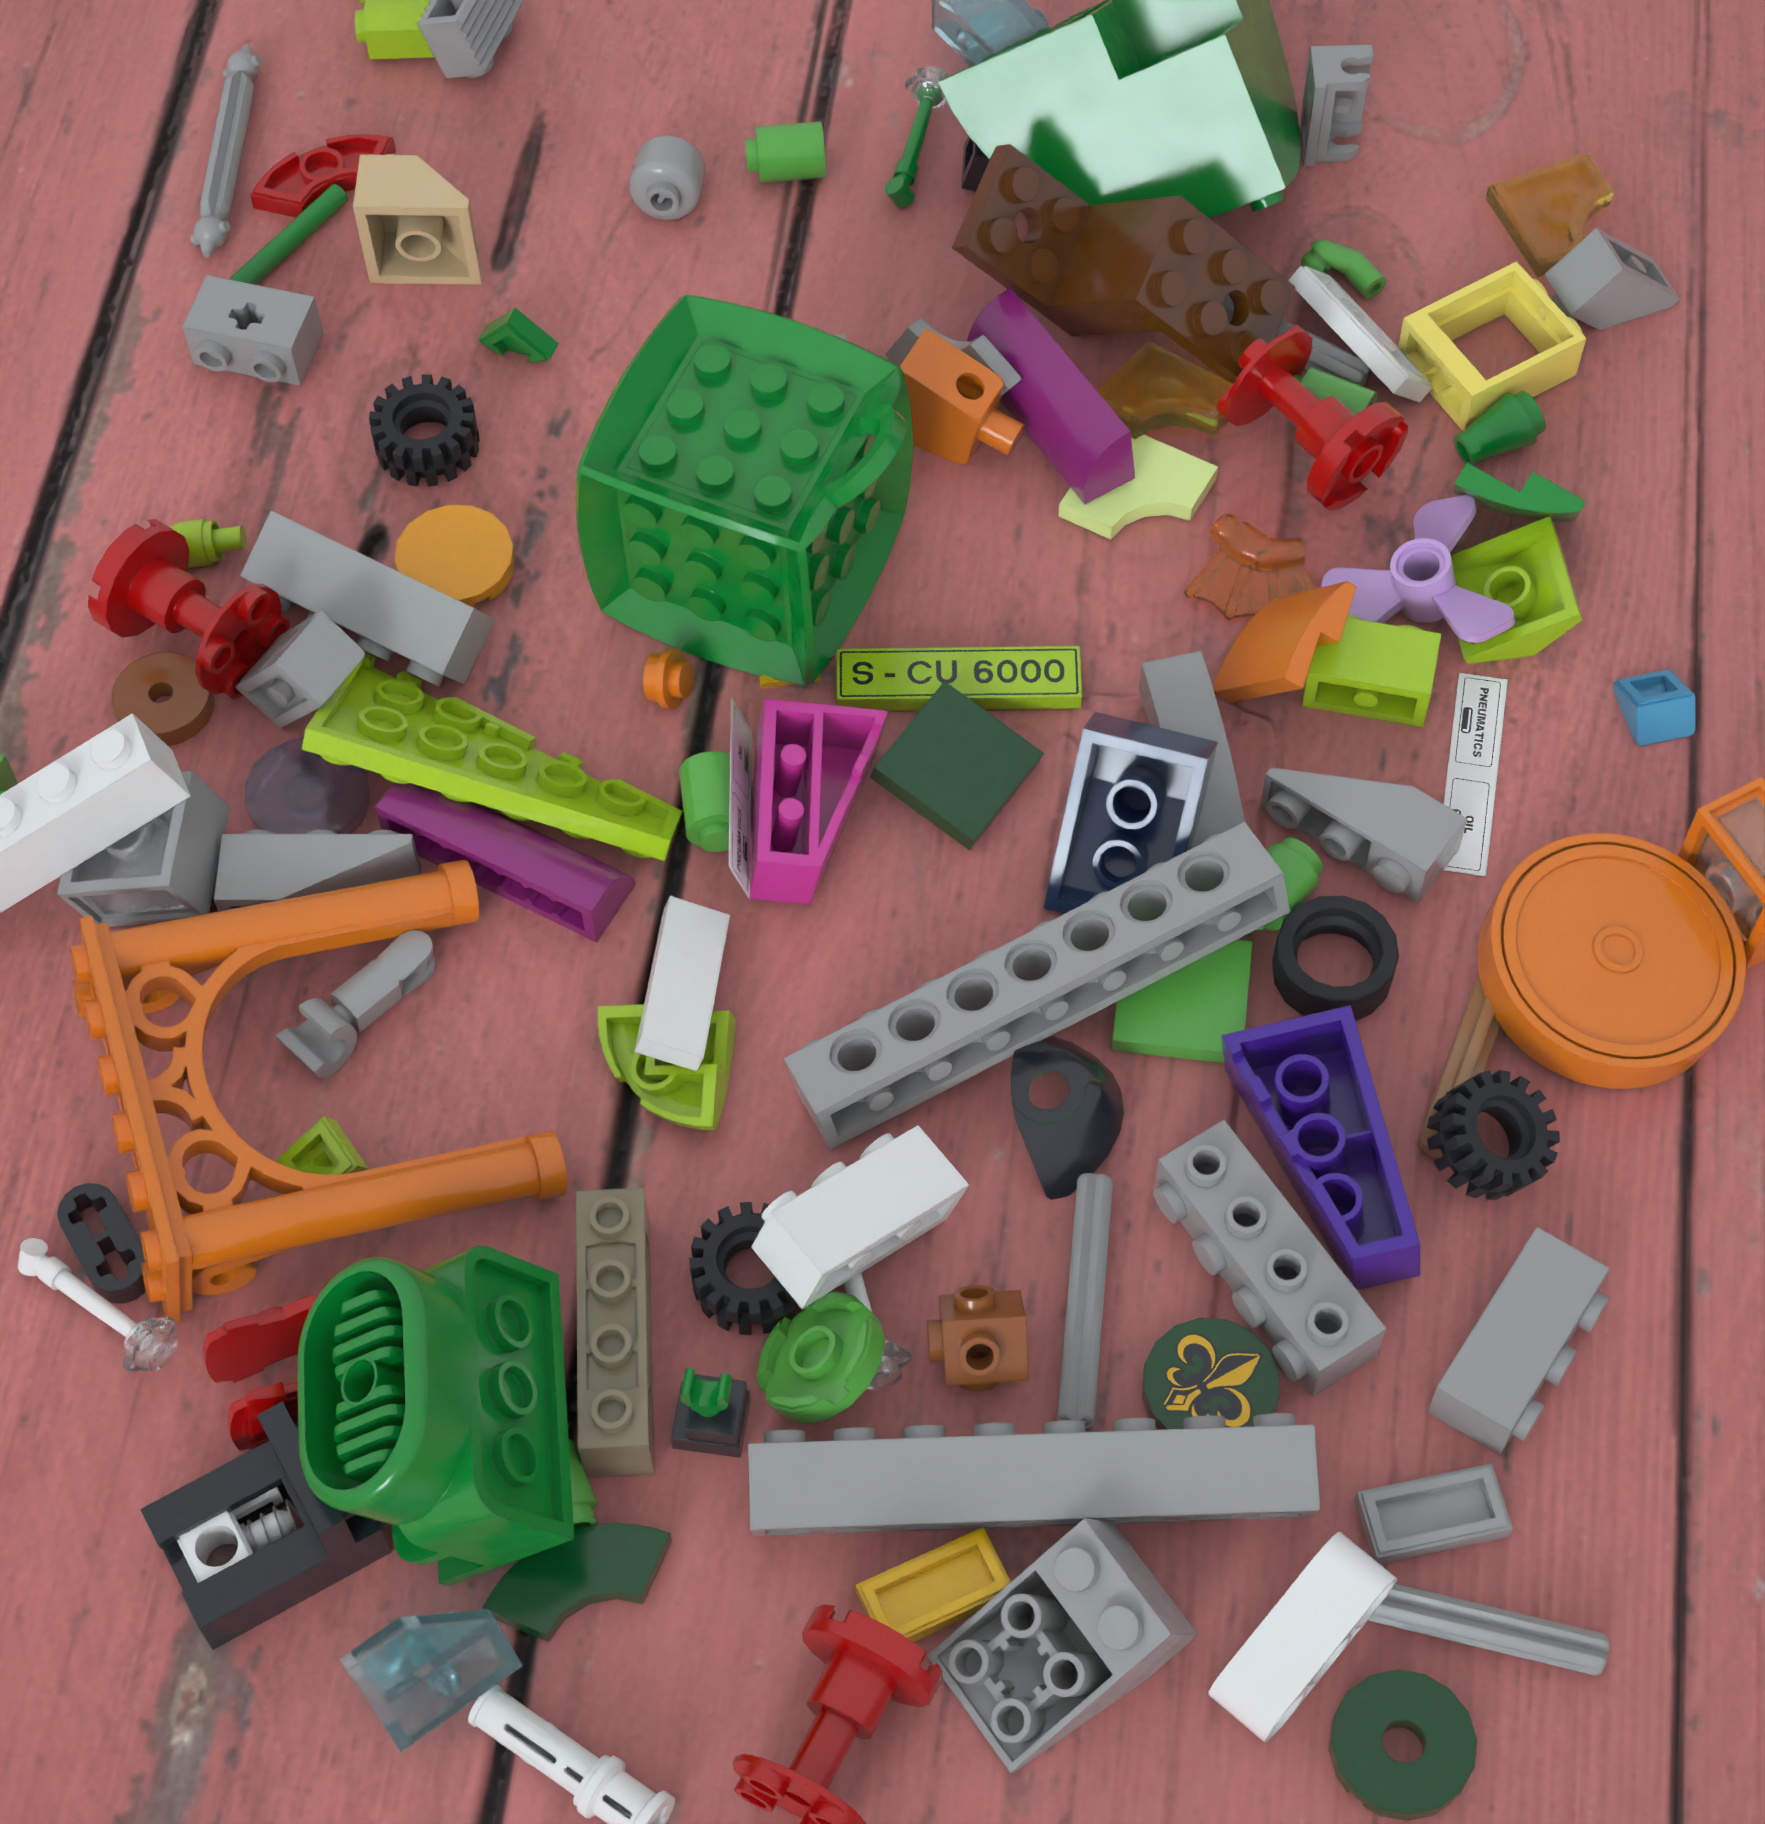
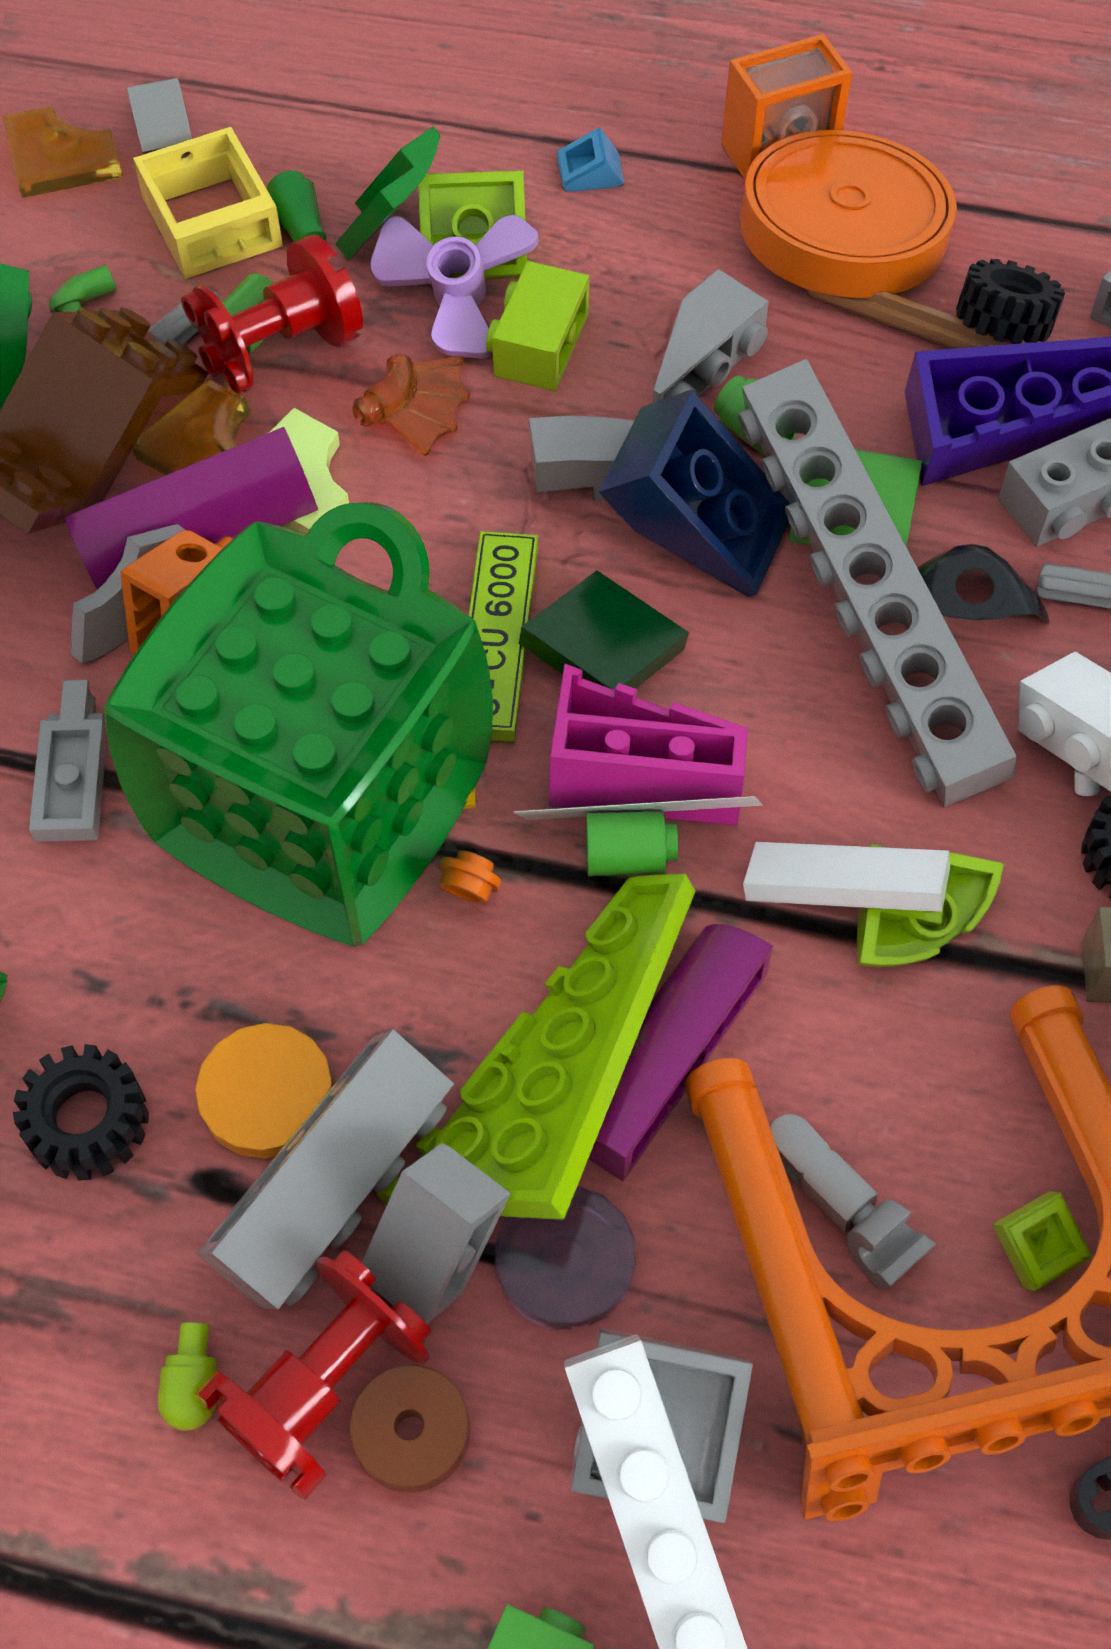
camera: 85 degrees left, 0 degrees up
(278, 867) = (692, 1261): light grey slope -> none
(1280, 641) = (519, 362): orange slope -> none
(1347, 918) = (851, 360): black tyre -> none
(1361, 333) = (175, 283): white tile -> none
(1474, 766) = (627, 285): white sticker -> none

